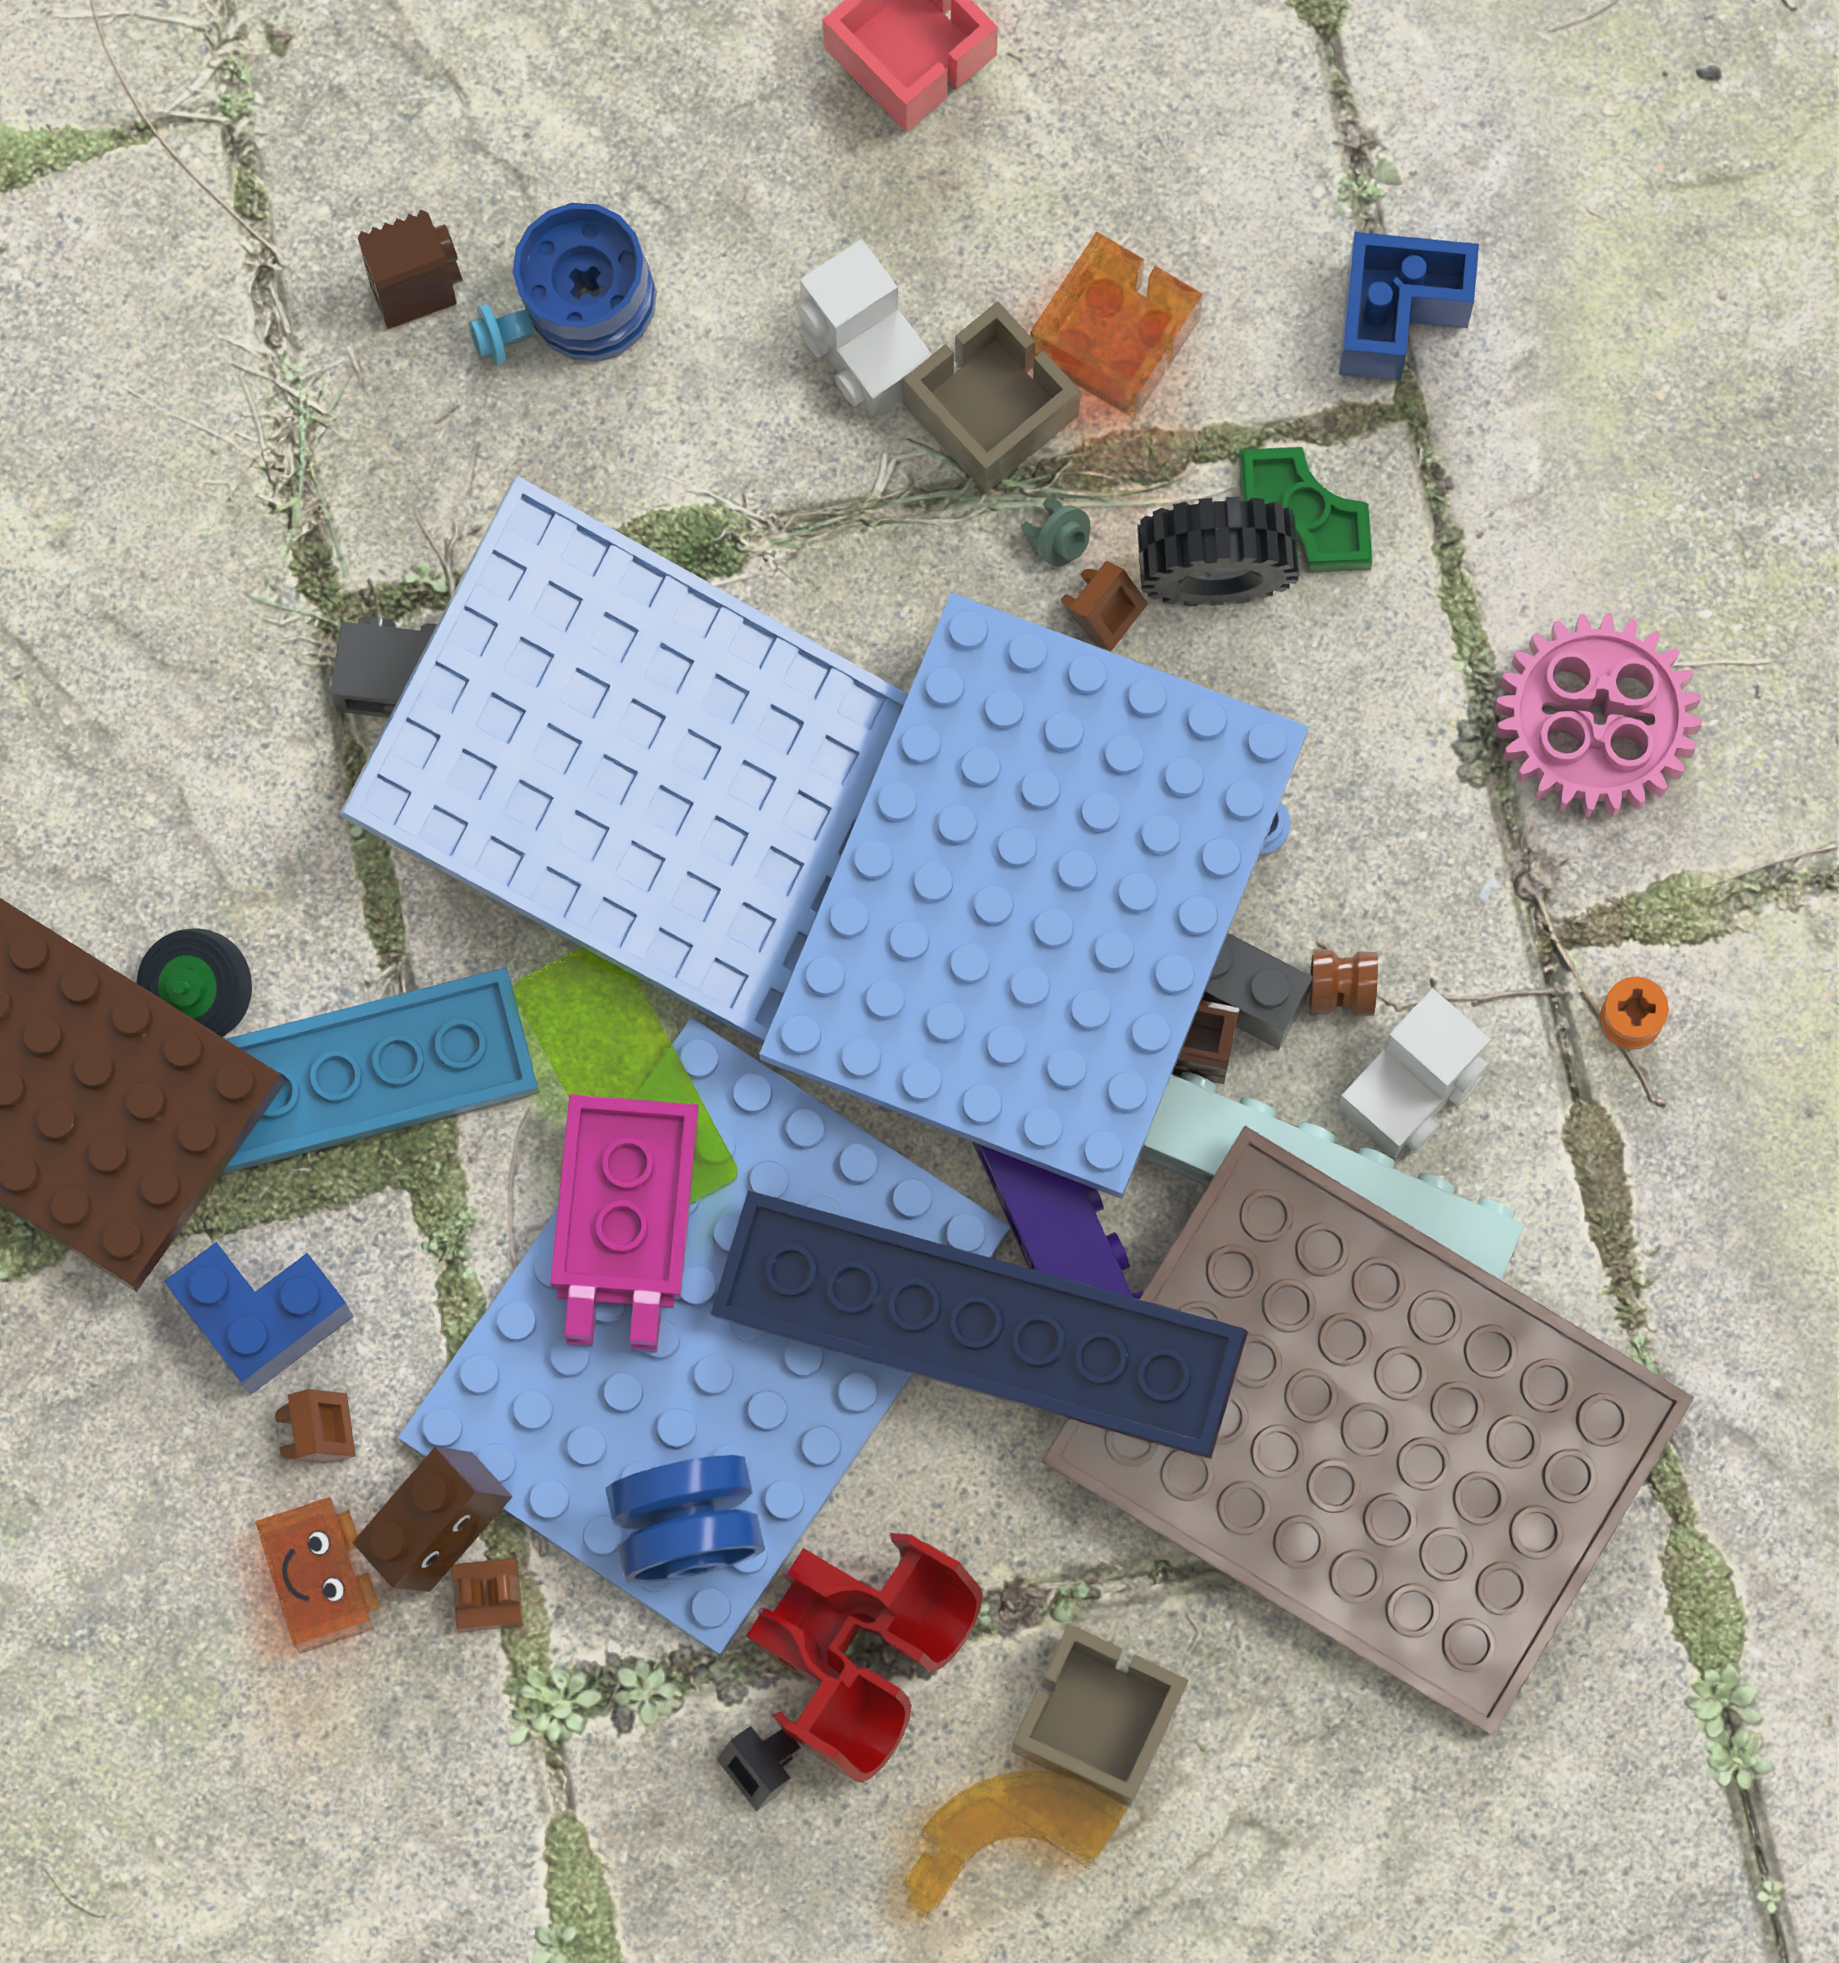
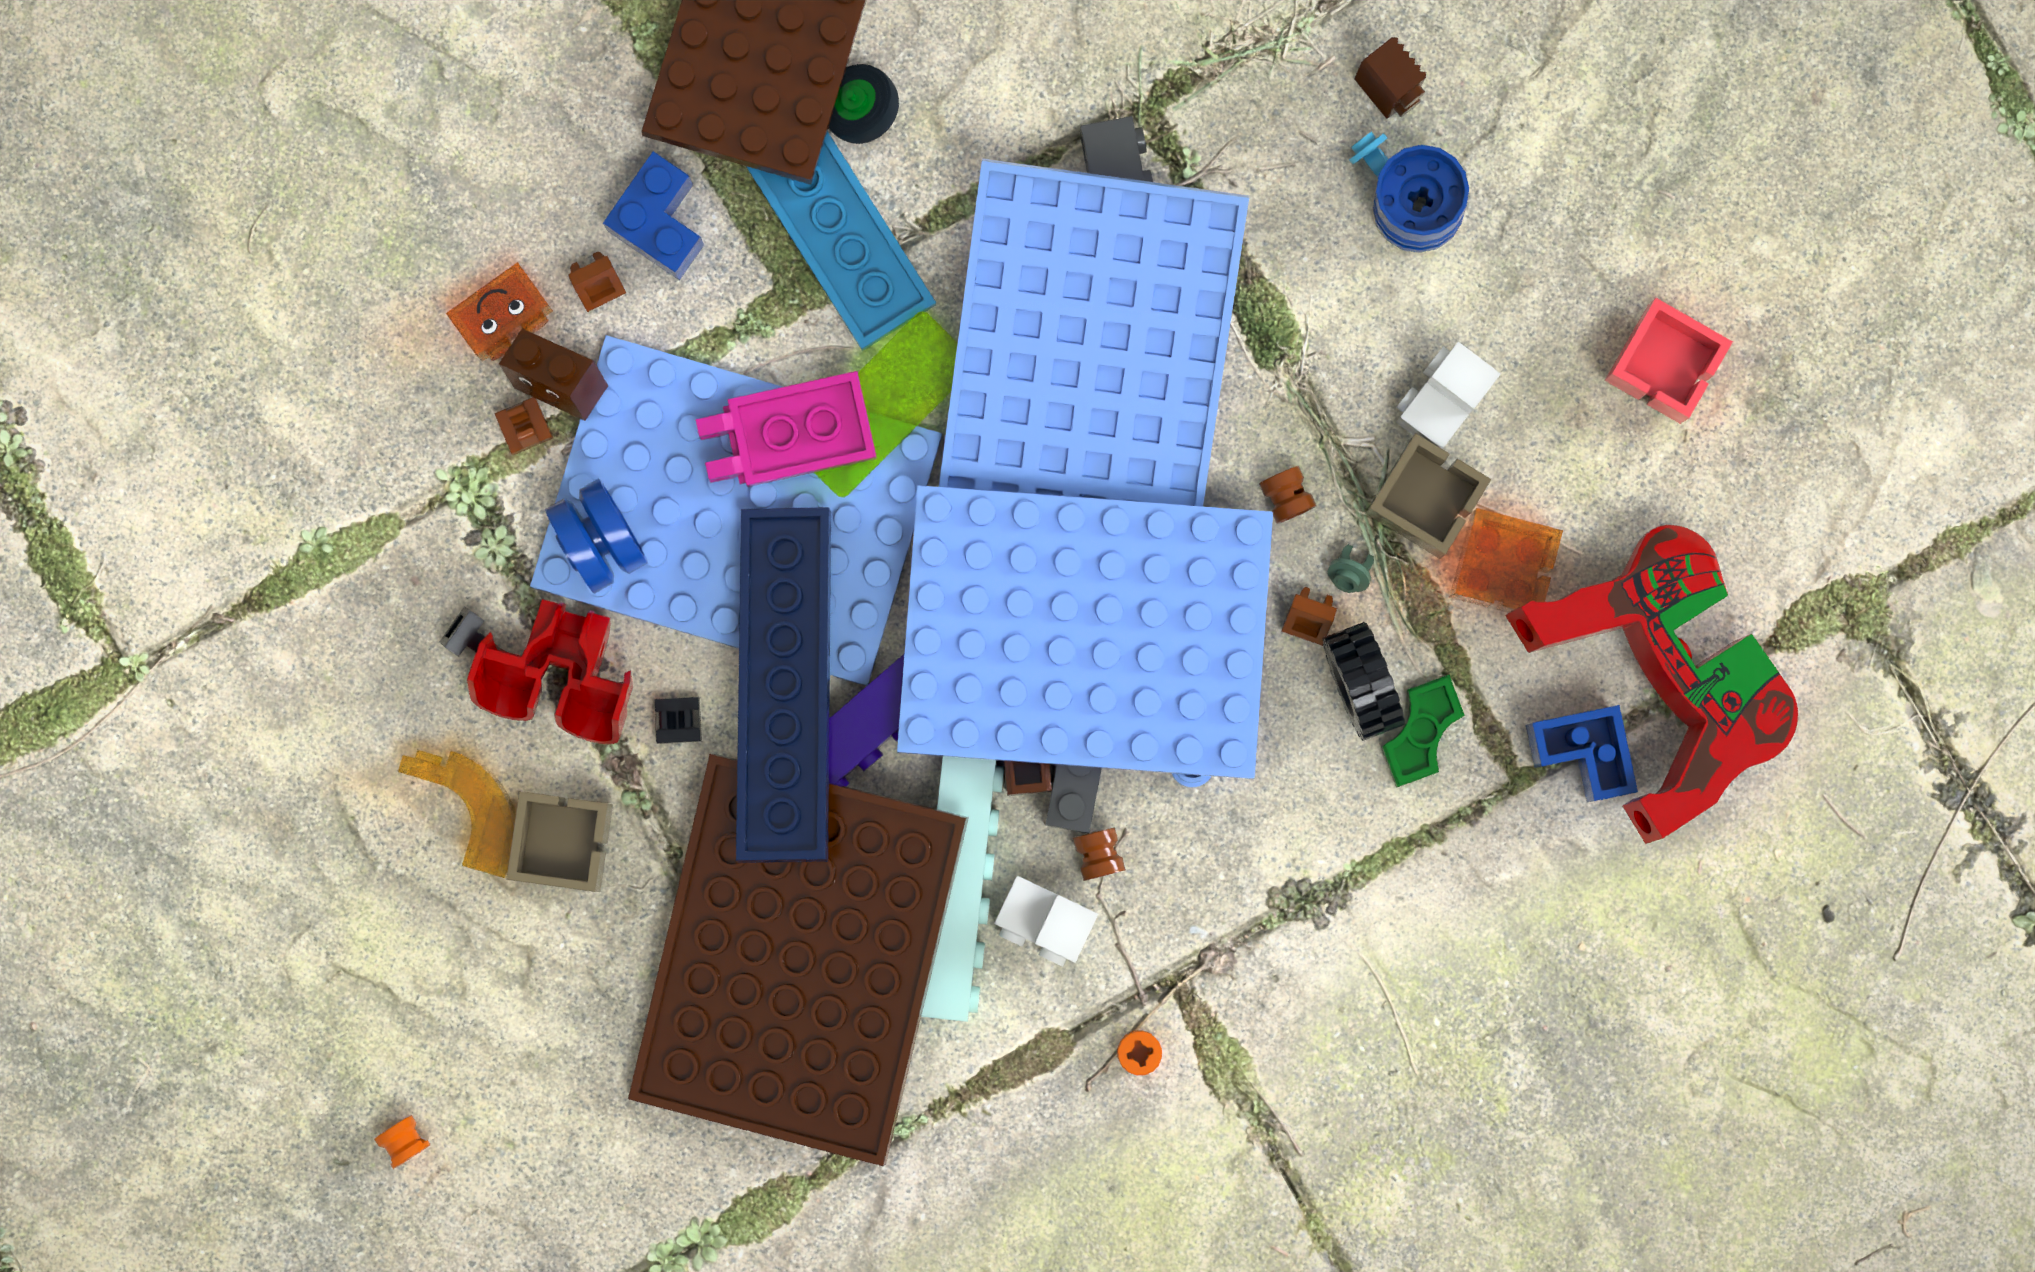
camera: 70 degrees right, 10 degrees up
(926, 581) = (1287, 494): none -> dark orange wheel
(976, 1506) = (678, 720): none -> black tile
(1388, 96) = (1731, 701): none -> animal
(1600, 660) = (1376, 961): bright pink gear -> none

